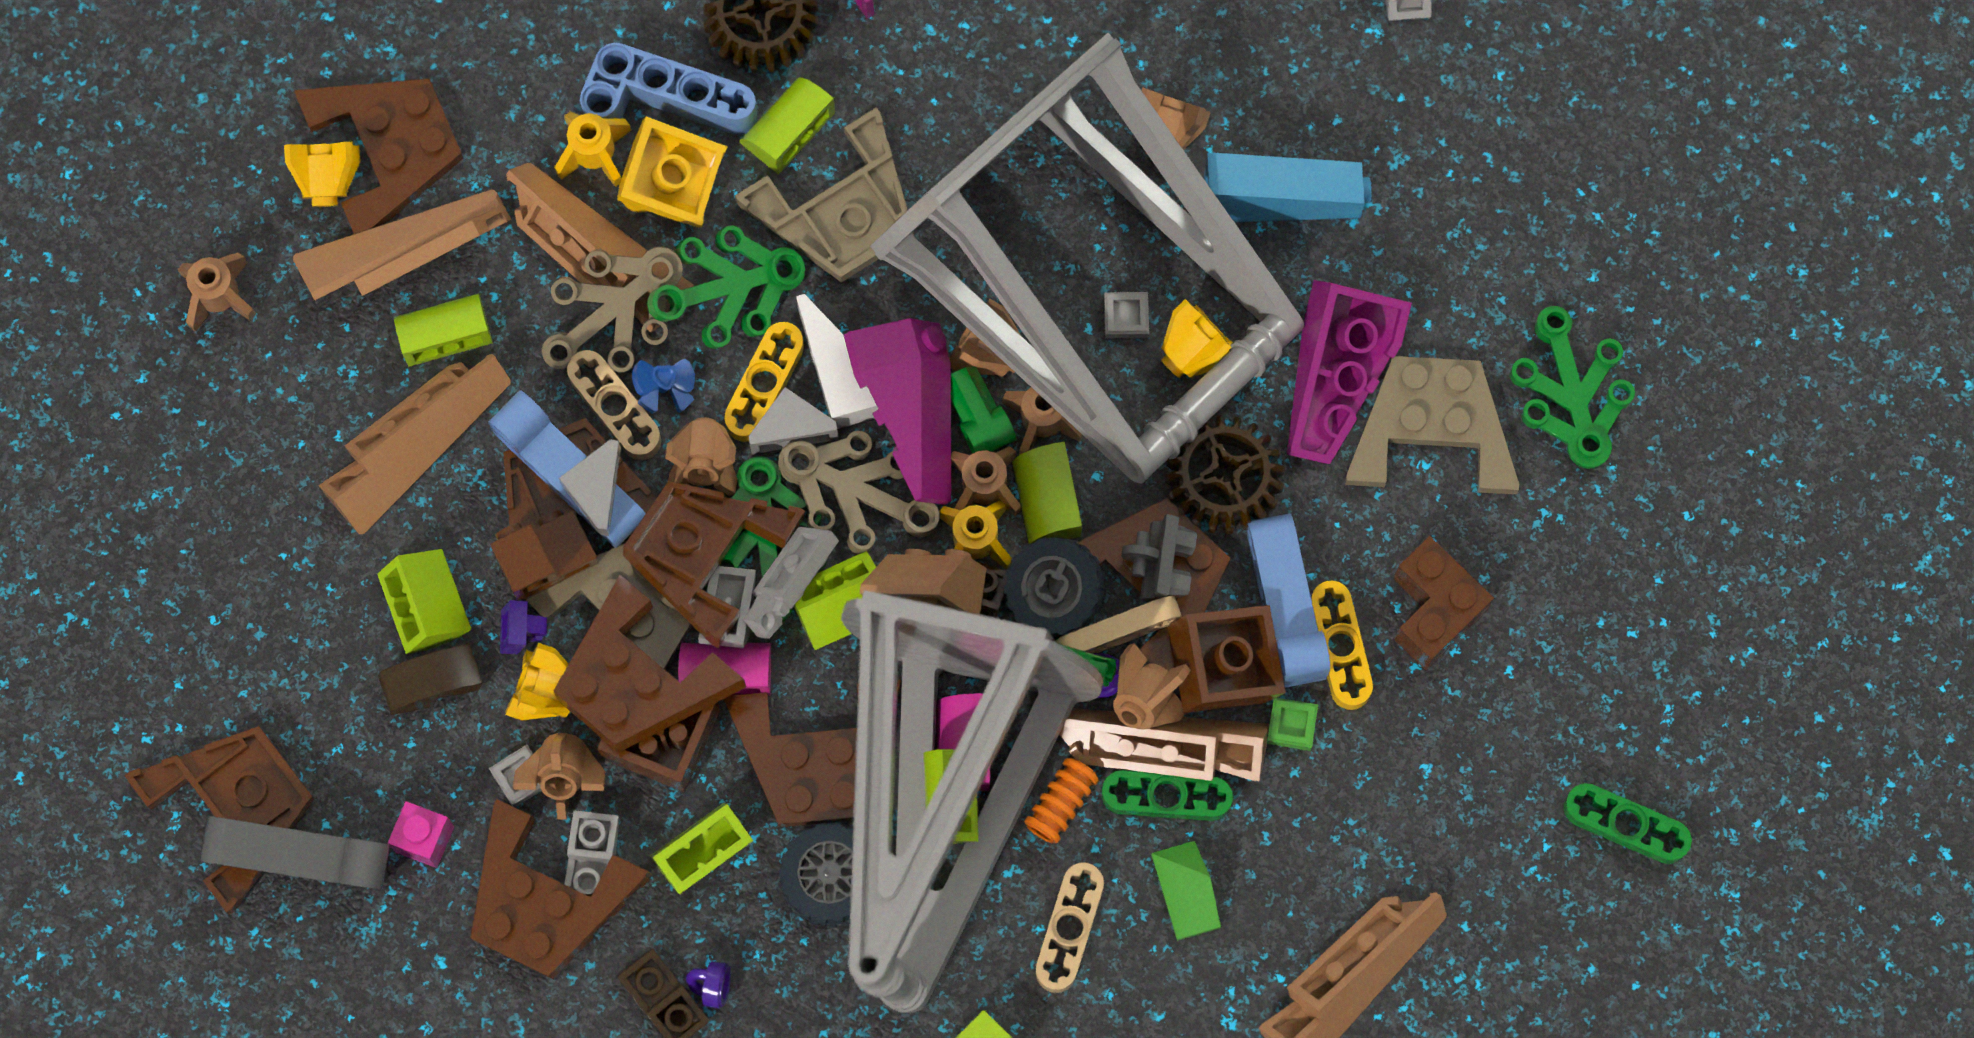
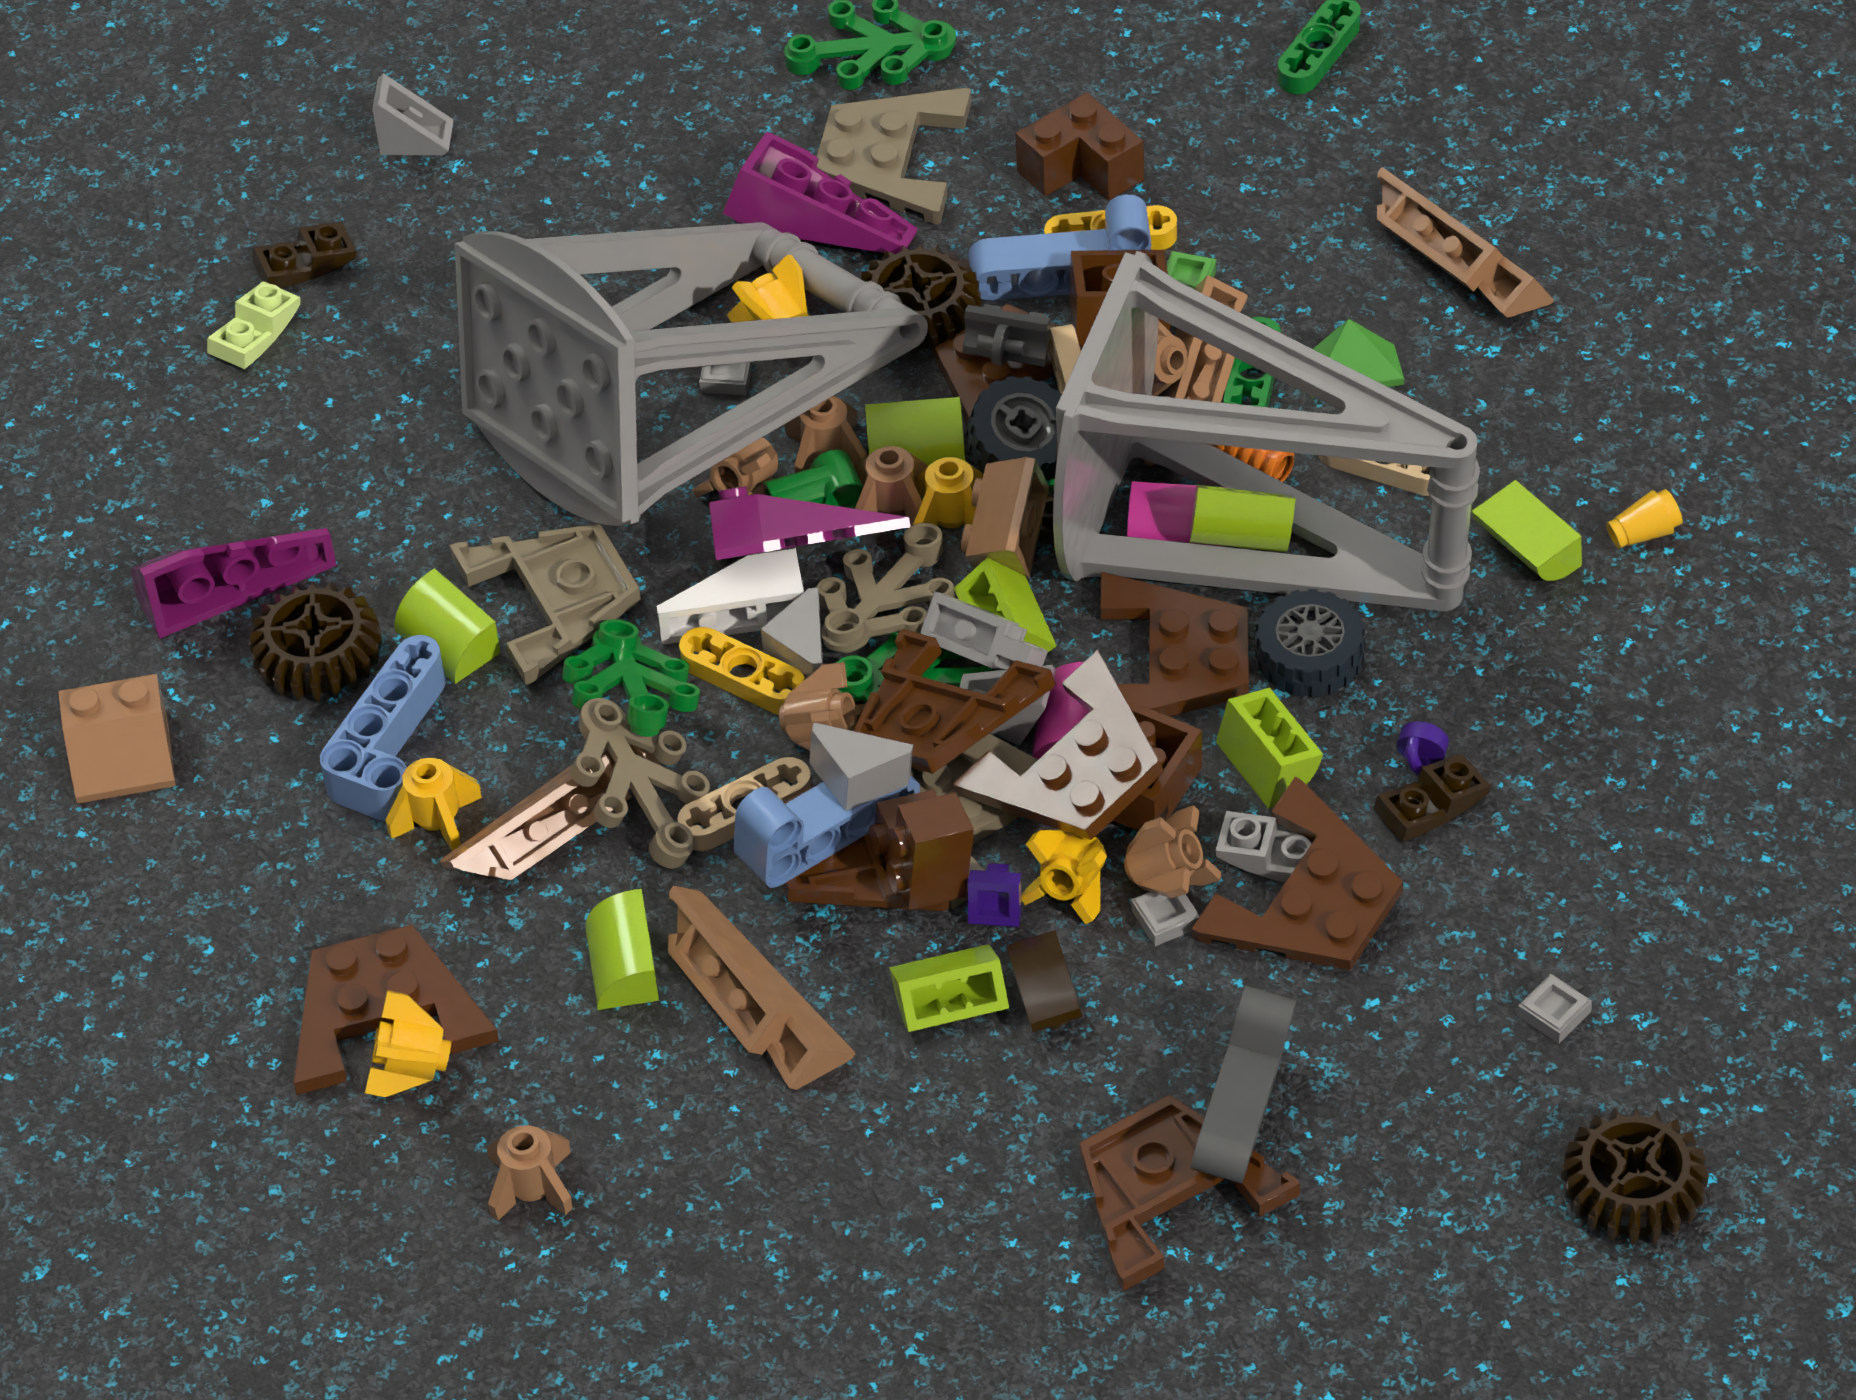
camera: 80 degrees left, 25 degrees down
(398, 247) = (520, 989): medium nougat wedge -> none
(421, 834) = (1221, 986): dark pink brick -> none
(651, 380) = (725, 750): blue piece -> none
(670, 172) = (482, 730): yellow slope -> none
(1286, 188) = (621, 205): dark azure slope -> none

